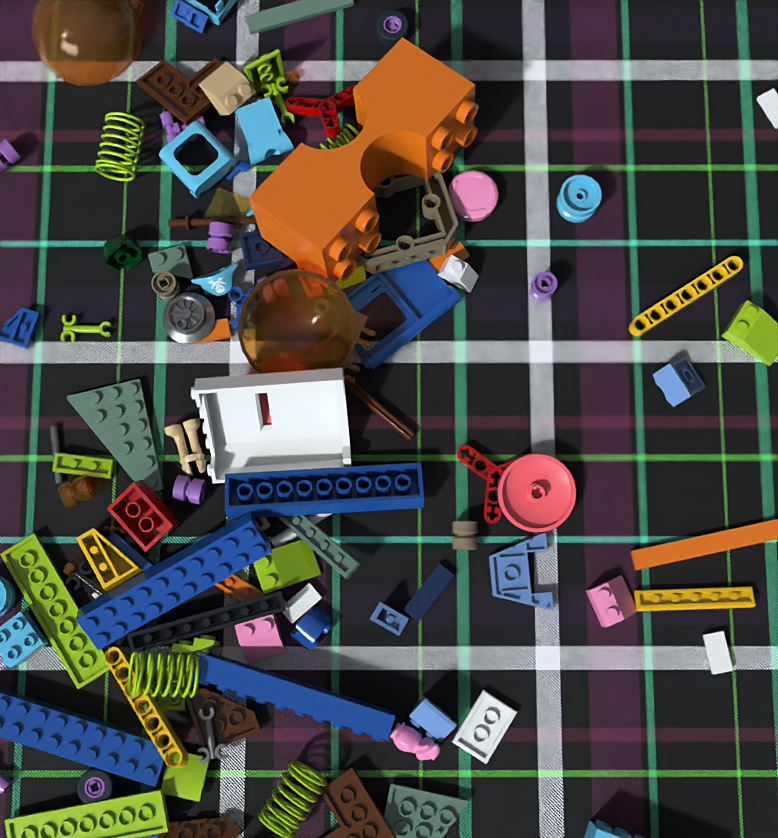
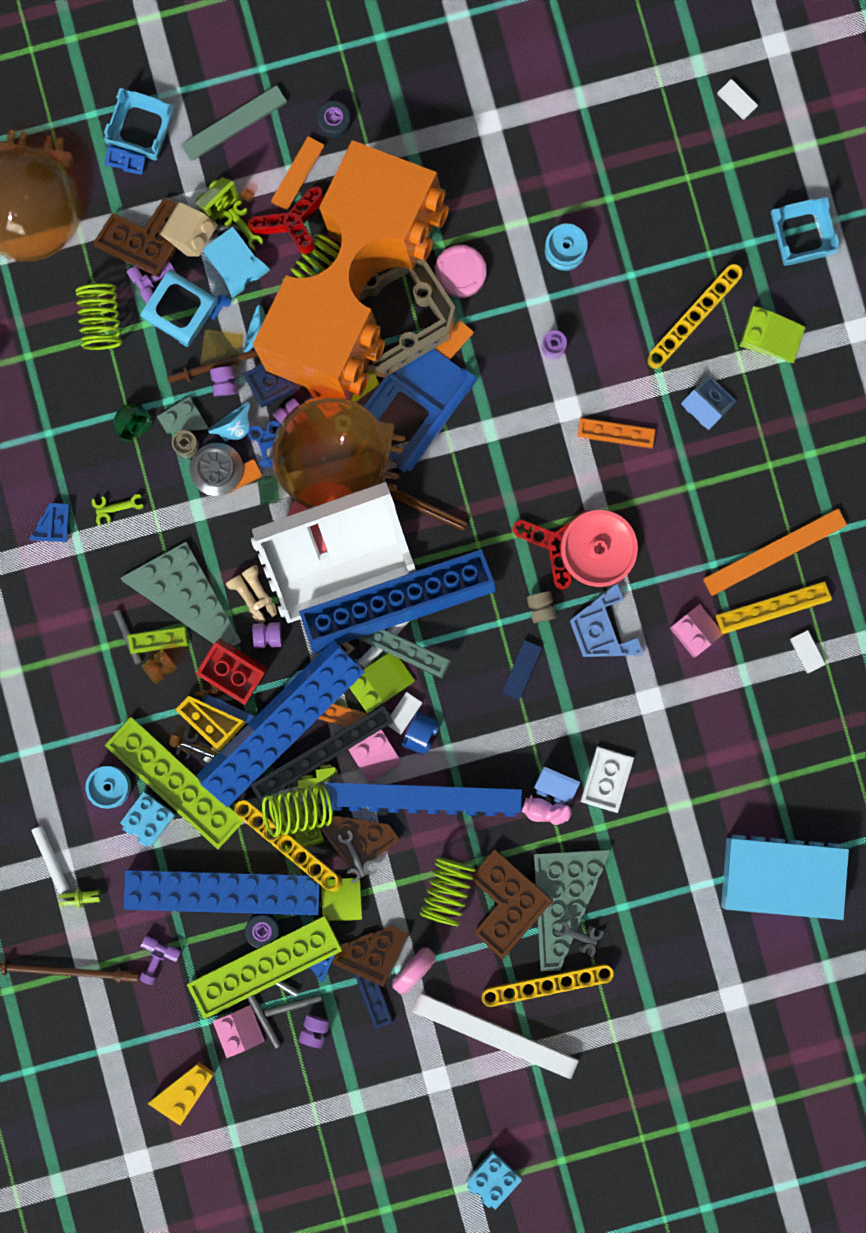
camera: 15 degrees left, 5 degrees up
(231, 351) = (268, 490): none -> clear green brick
(345, 69) = (297, 173): none -> orange tile
(389, 618) = (491, 704): medium blue slope -> none
(458, 273) = (467, 354): white slope -> none
(581, 386) = (616, 433): none -> orange tile

